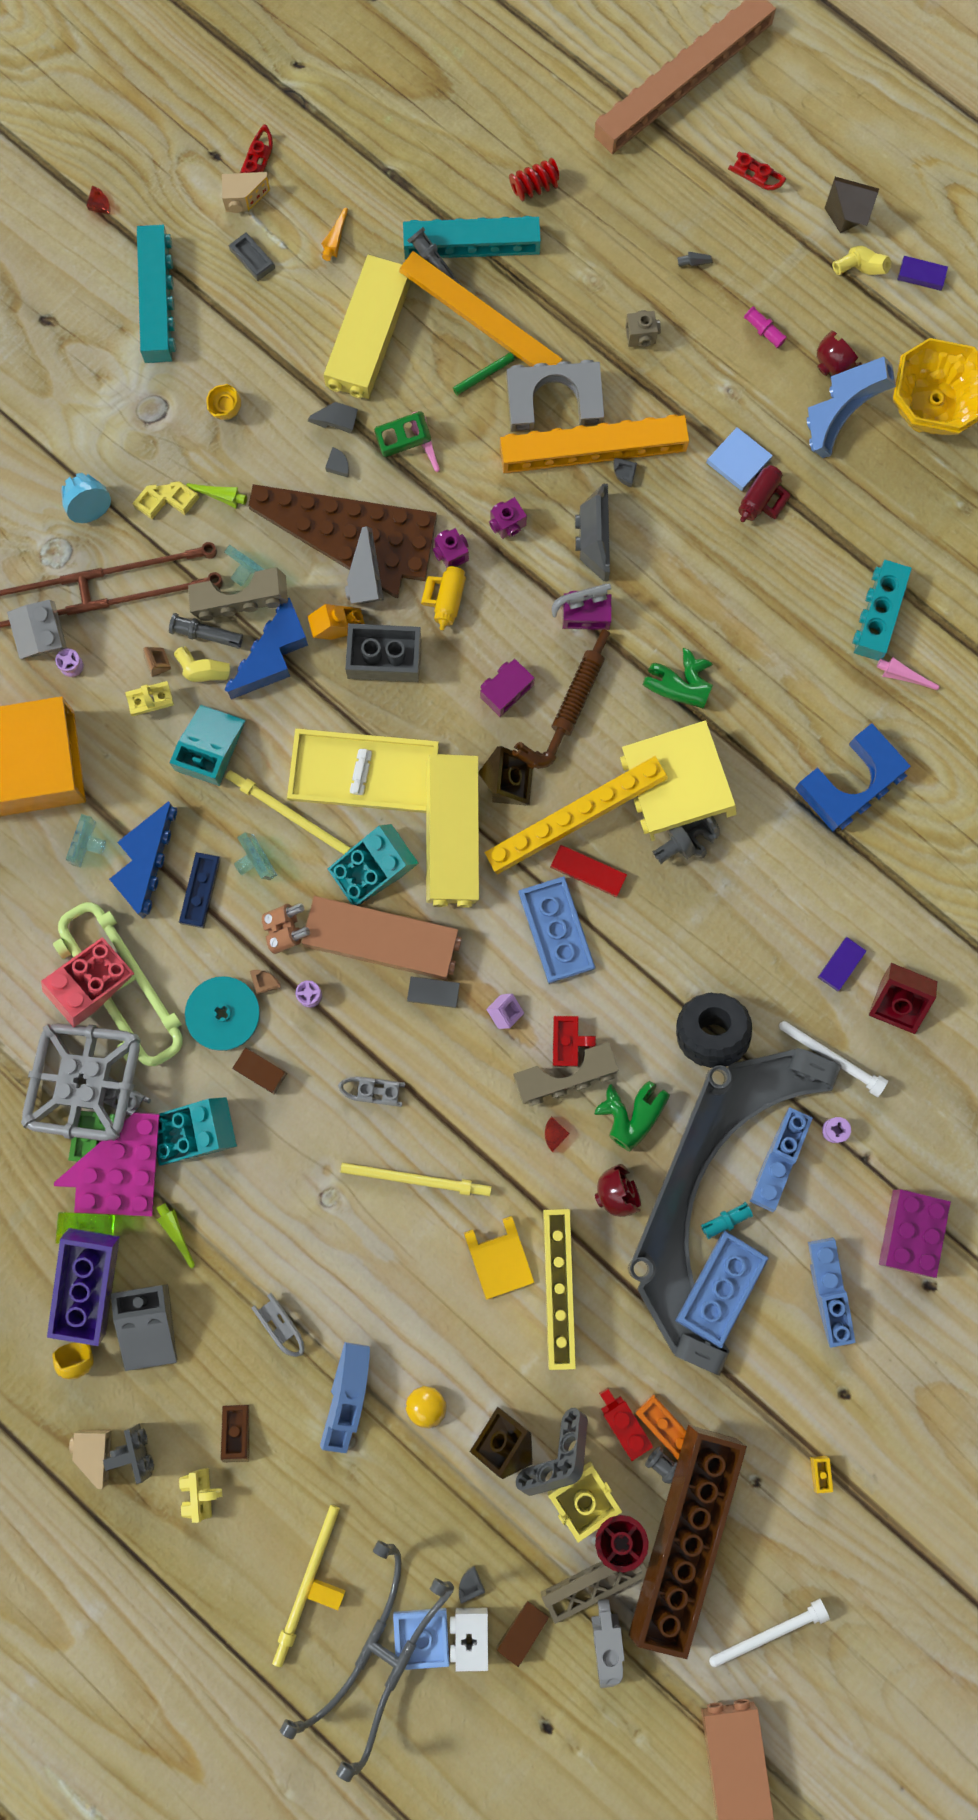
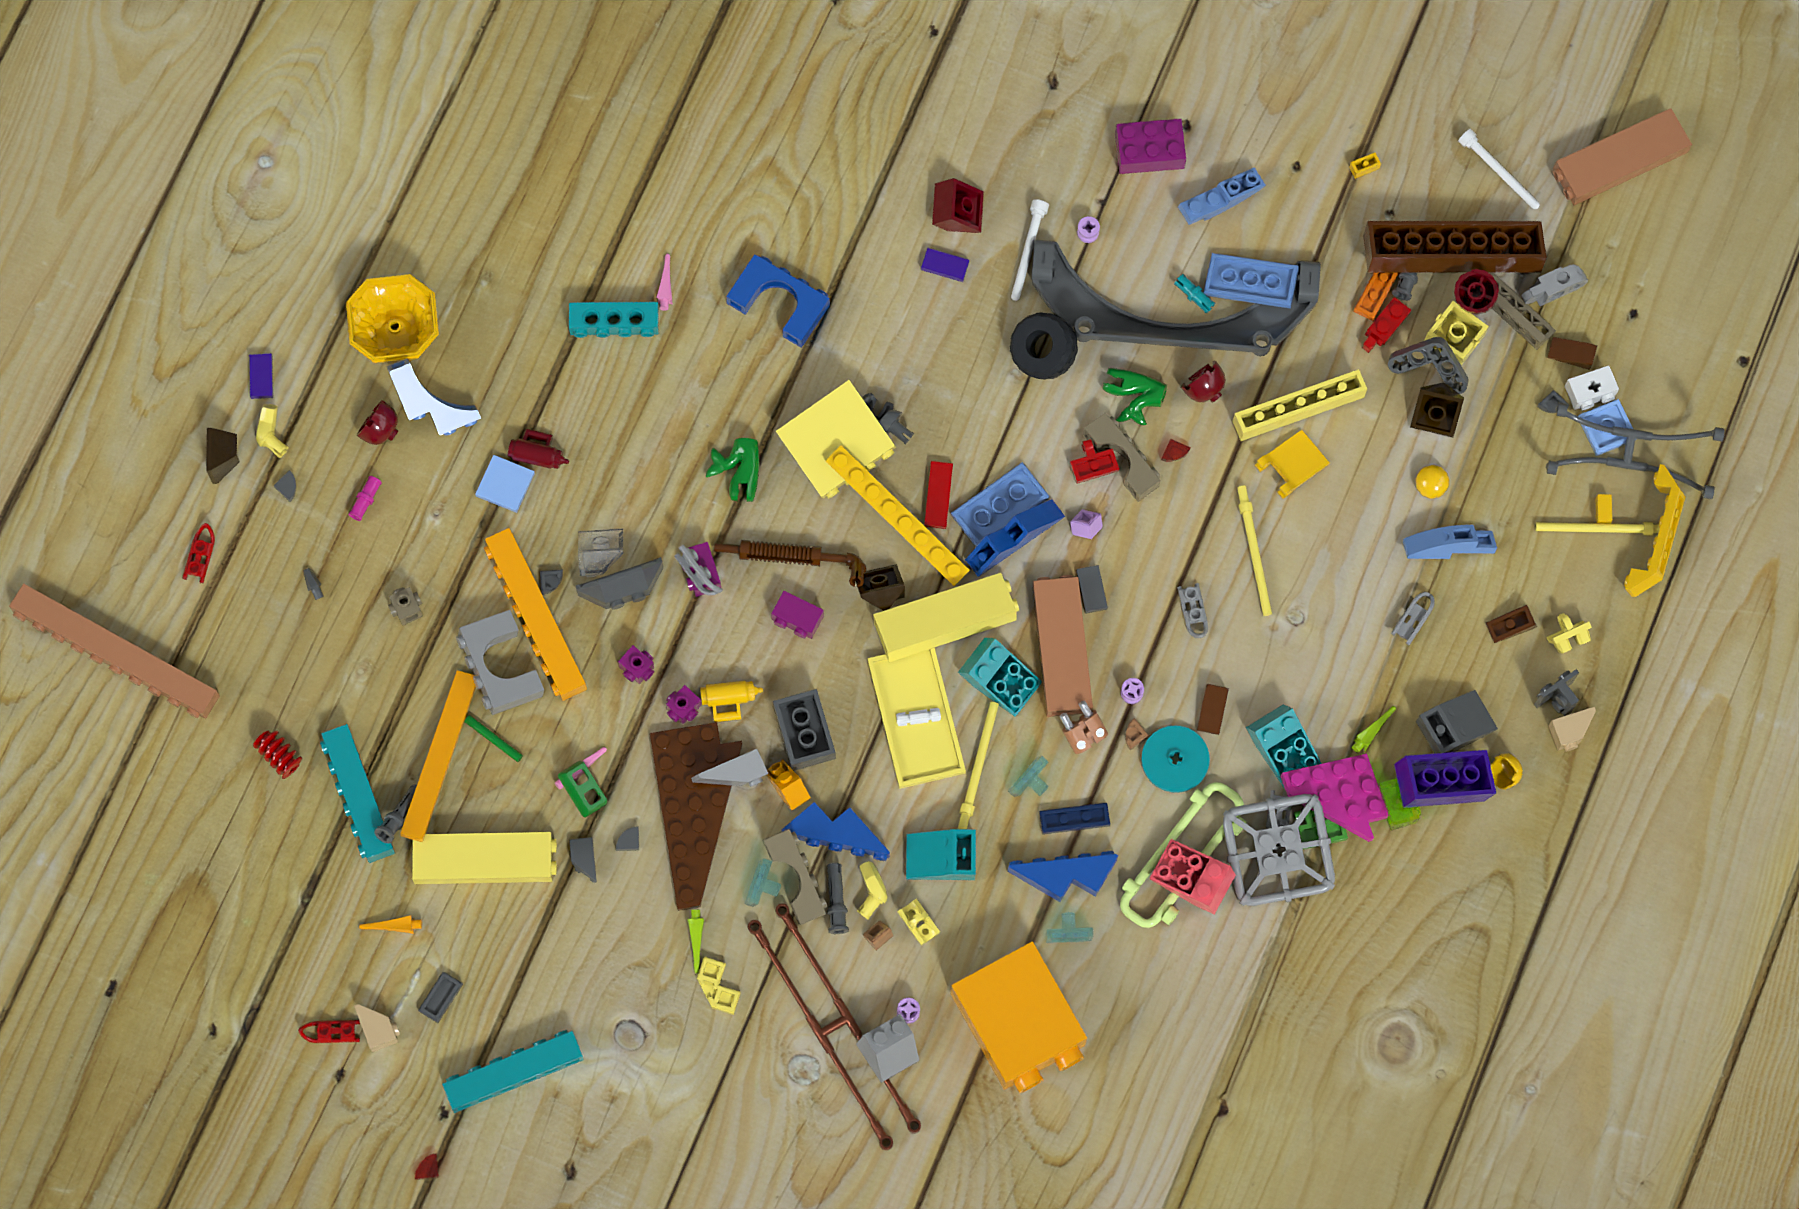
camera: 110 degrees left, 5 degrees down
(84, 498) = (746, 1054): medium azure piece -> none
(223, 402) = (605, 963): yellow hair -> none
(329, 1682) = (1641, 580): none -> yellow slope
(516, 932) = (1013, 536): none -> blue slope
(640, 519) = (599, 550): none -> clear slope
(780, 1159) = (1129, 266): medium blue slope -> none
(801, 264) = (286, 486): none -> dark grey tile

